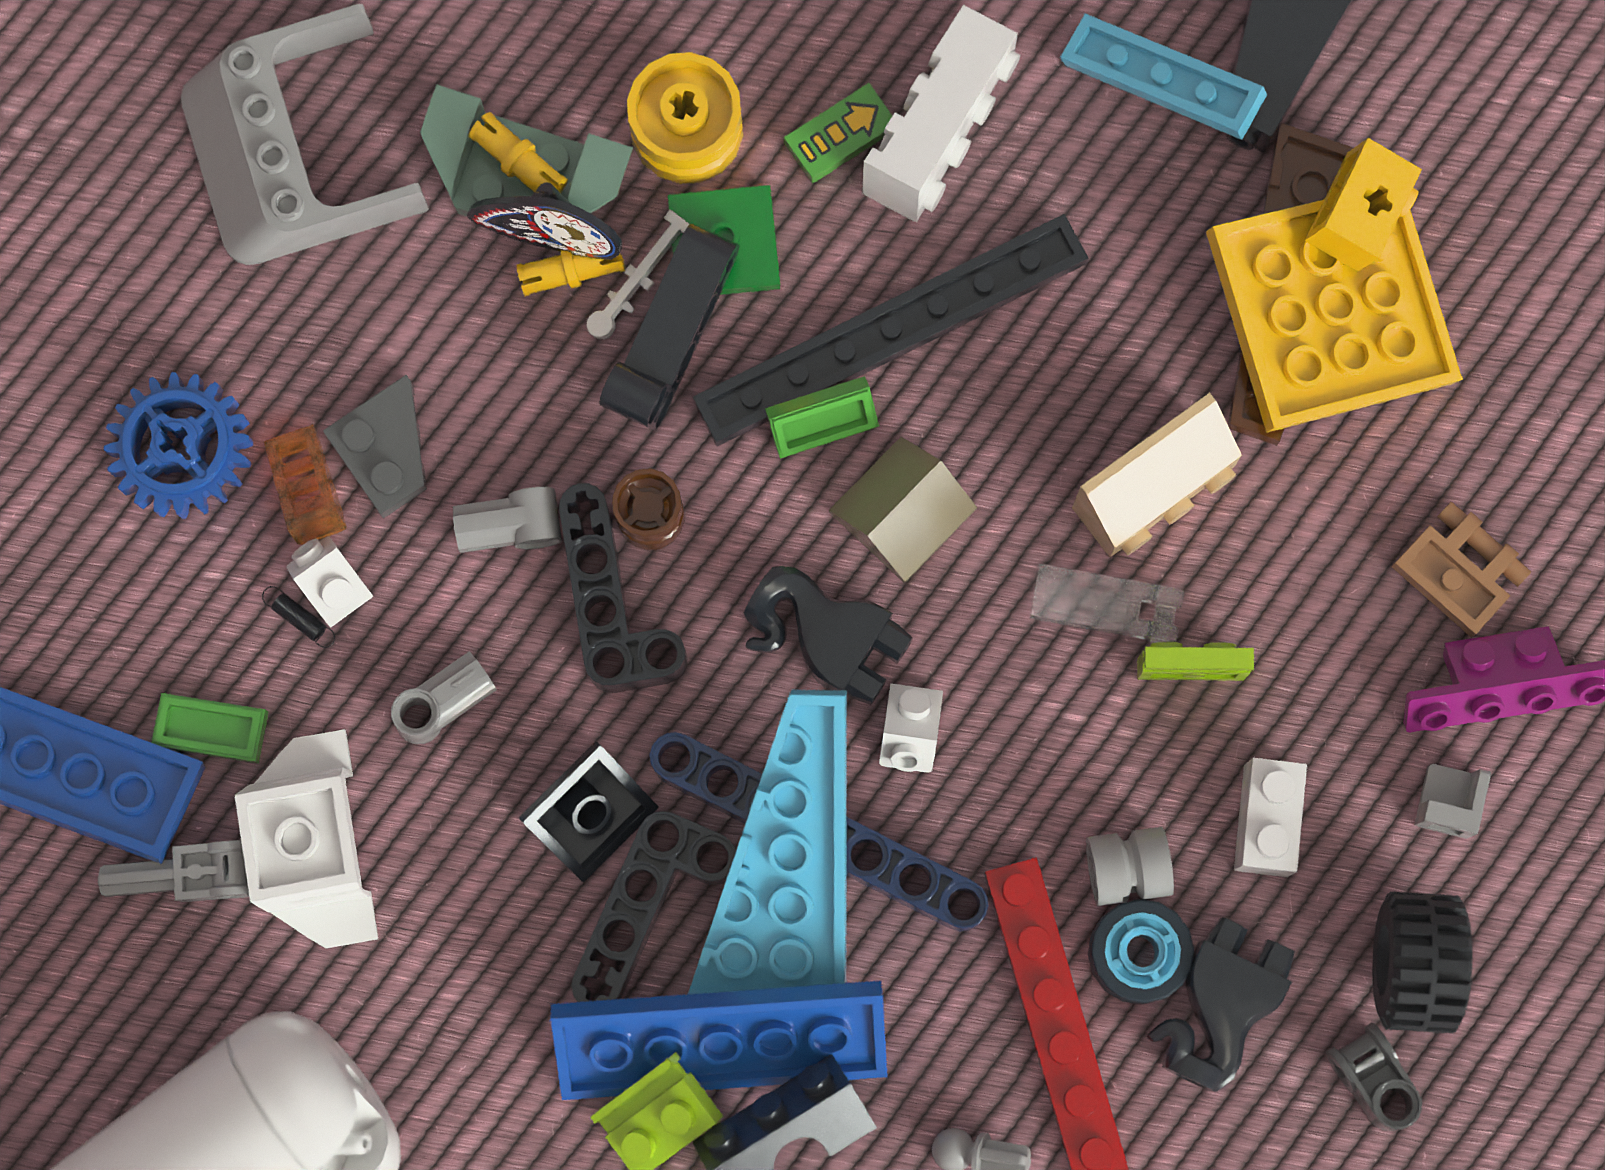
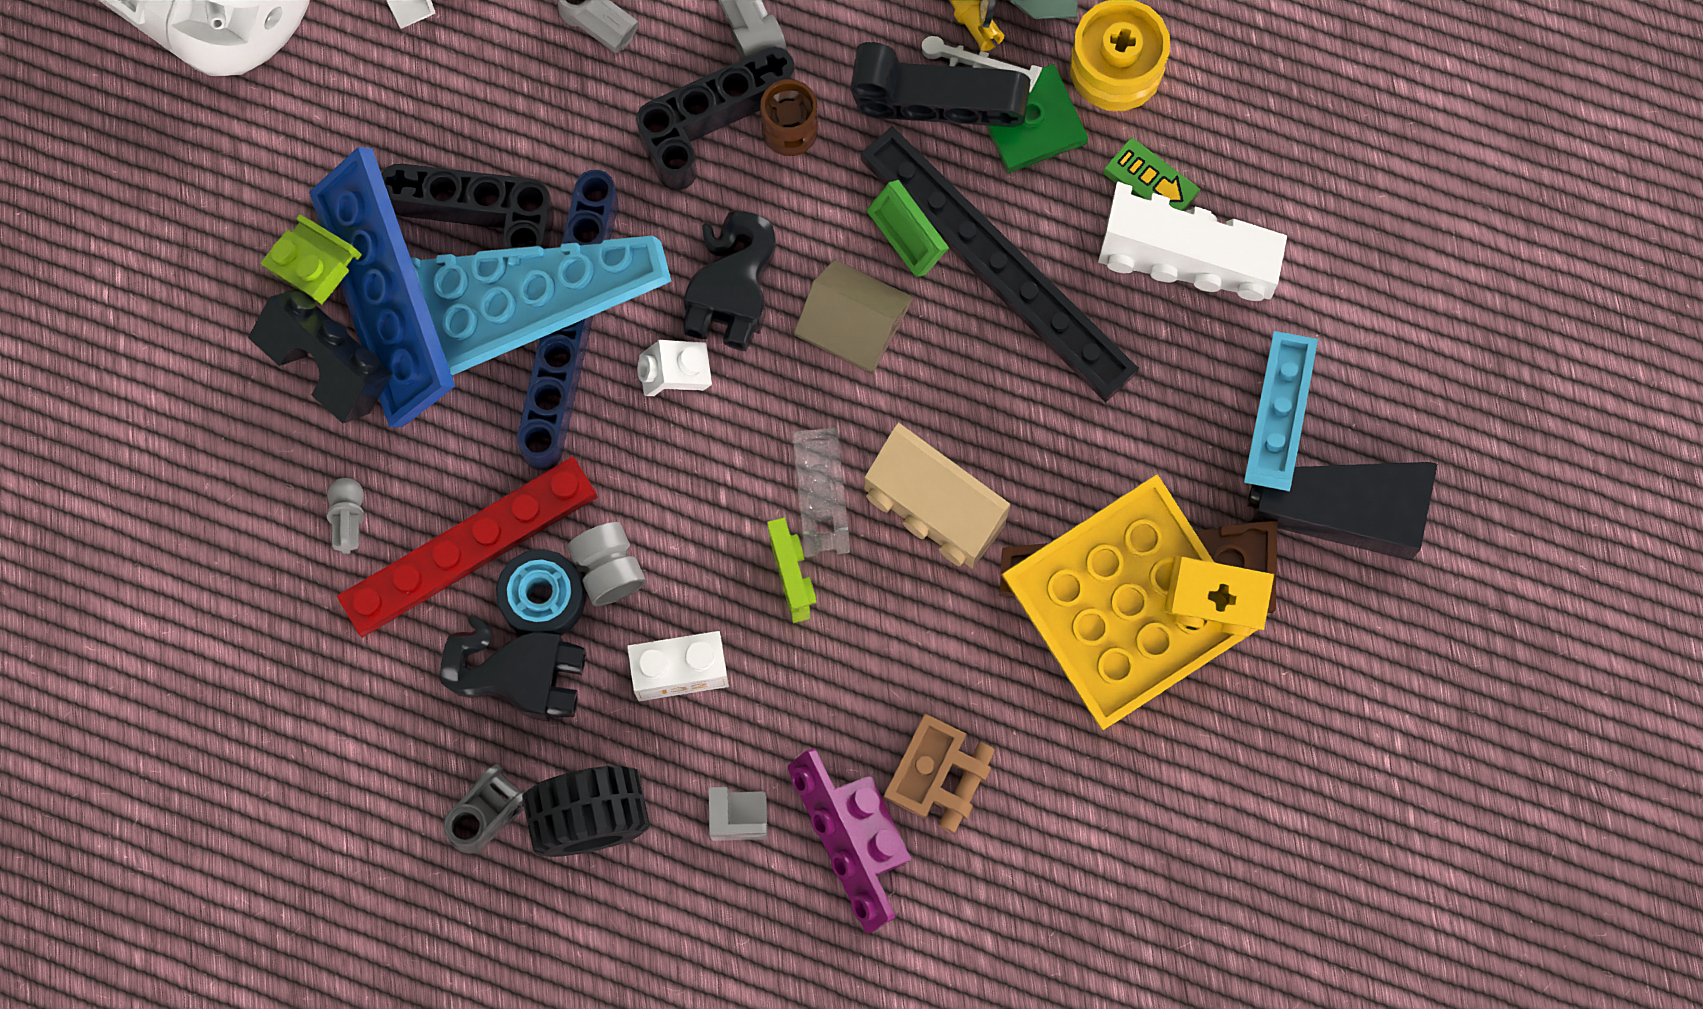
camera: 70 degrees right, 5 degrees down
(589, 811) = (537, 141): black slope -> none

